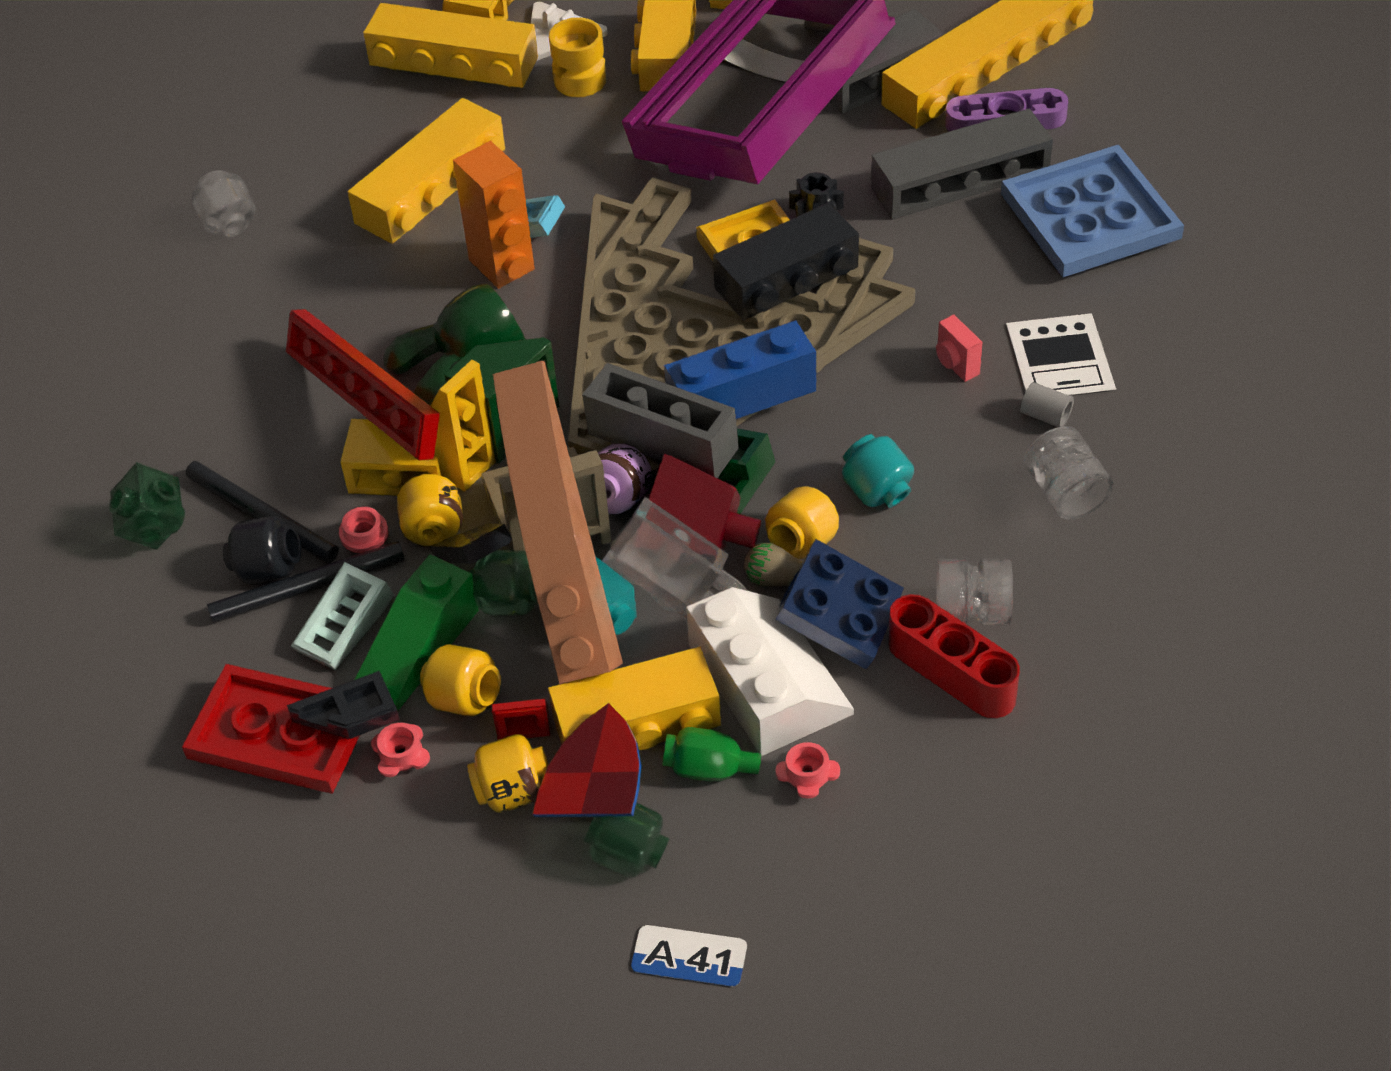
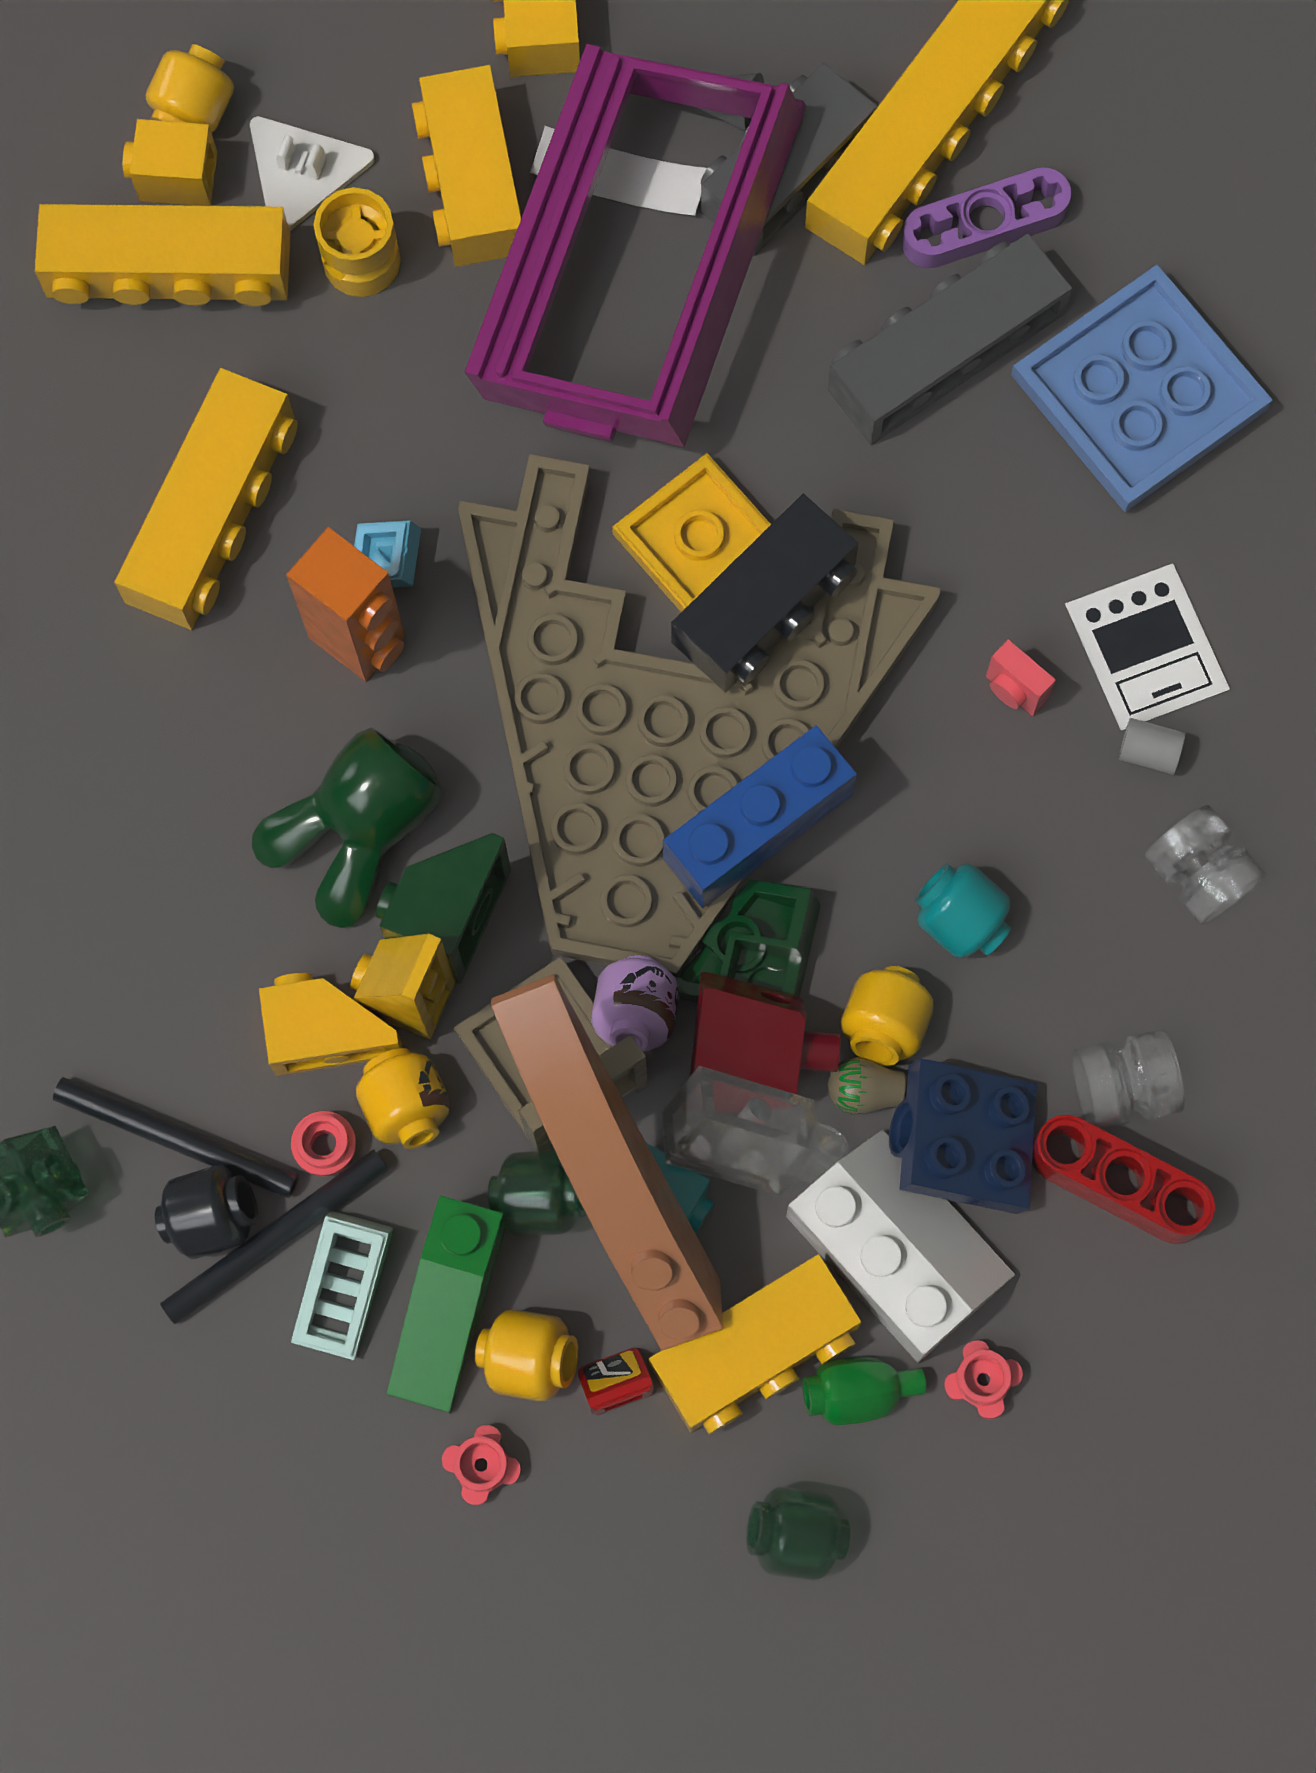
camera: 15 degrees left, 25 degrees up
(251, 731) = (320, 1472): red plate -> none
(348, 708) = (408, 1436): black tile -> none
(363, 384) = (258, 937): red tile -> none
(472, 544) = (482, 1153): black tile -> none
(507, 773) = (630, 1479): yellow head -> none
(593, 771) = (743, 1472): shield -> none
(660, 419) = (677, 922): dark grey brick -> none
(689, 955) = (906, 1659): sticker -> none
(814, 191) = (760, 433): black gear -> none

